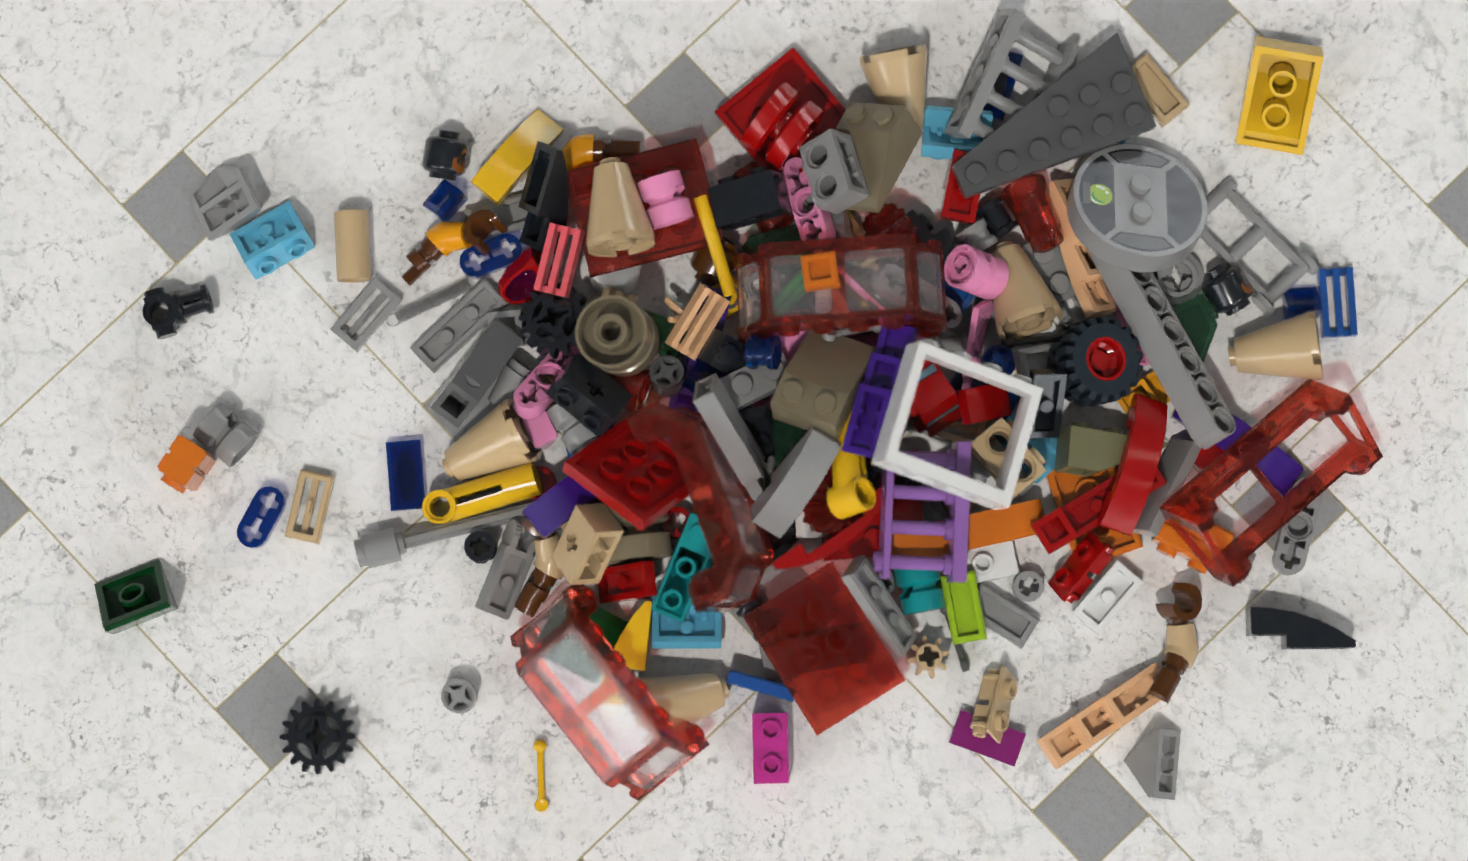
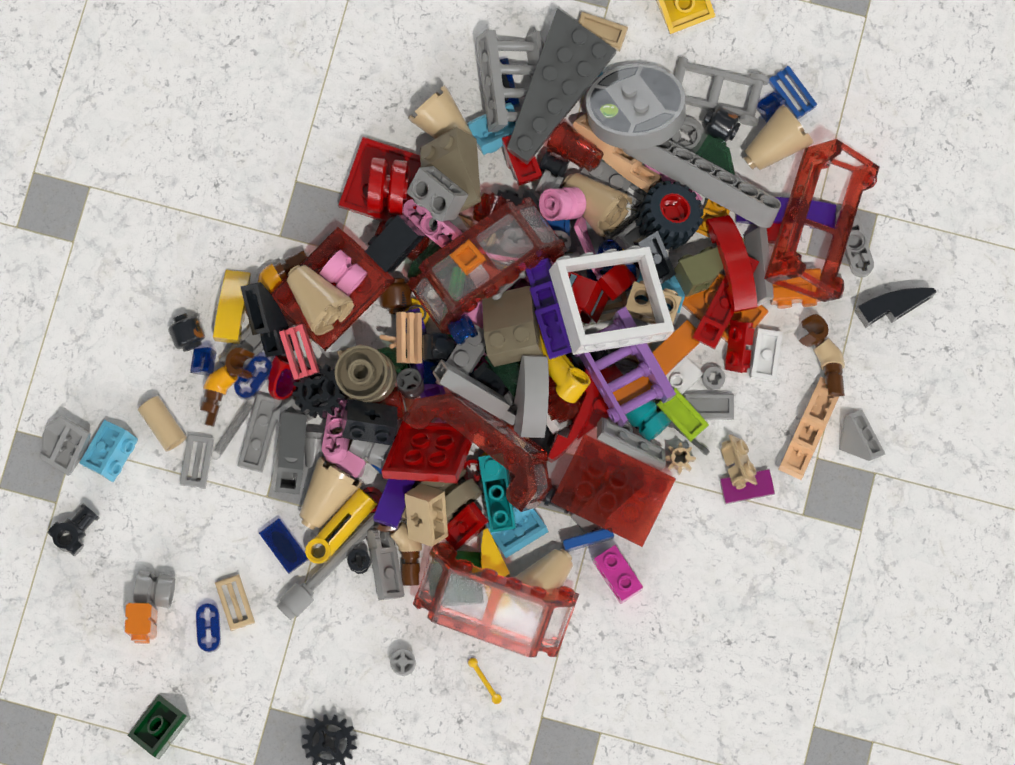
camera: 30 degrees left, 5 degrees down
(715, 245) = (391, 284): yellow piece -> none

